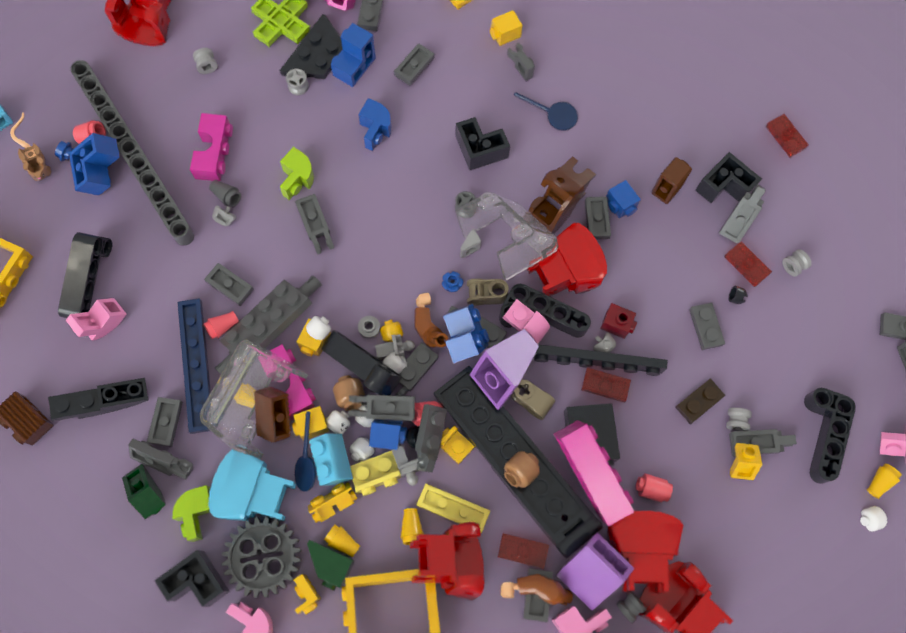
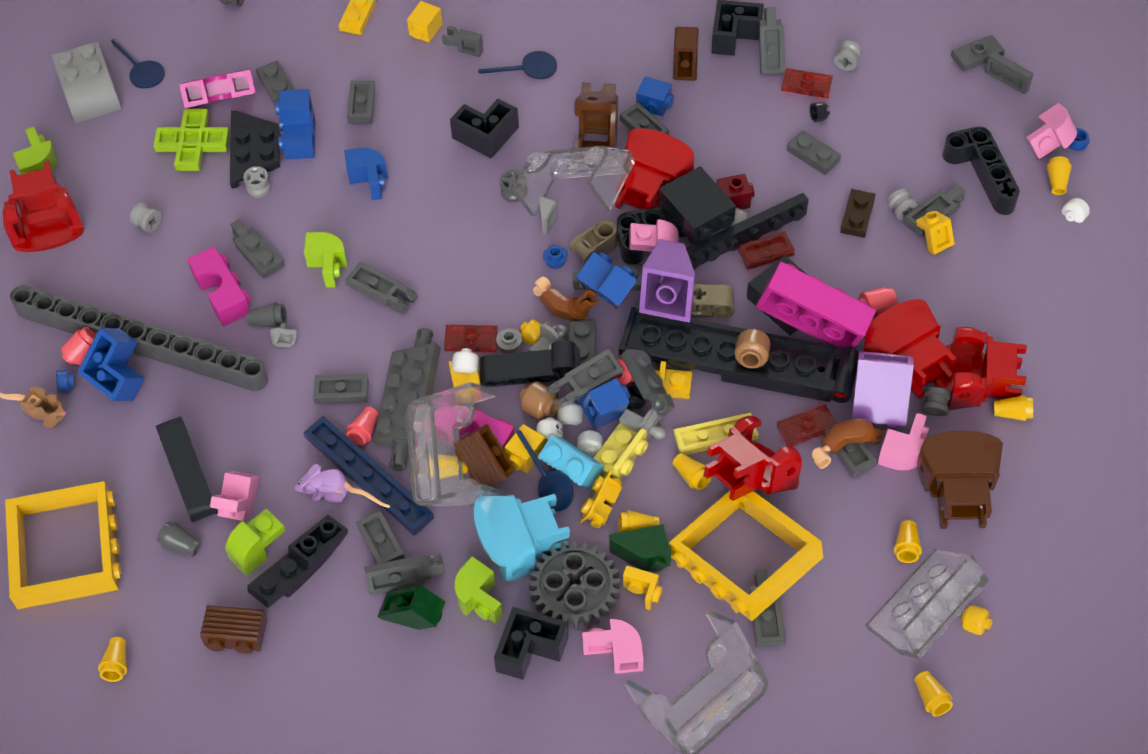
camera: 30 degrees left, 15 degrees down
(42, 324) = (177, 539): none -> dark grey cone
(79, 364) = (247, 541): none -> lime brick
(163, 355) = (329, 484): none -> lavender animal
(258, 134) = (256, 250): none -> dark grey hinge
(345, 306) = (474, 337): none -> clear red plate
(576, 318) = (697, 205): none -> black brick

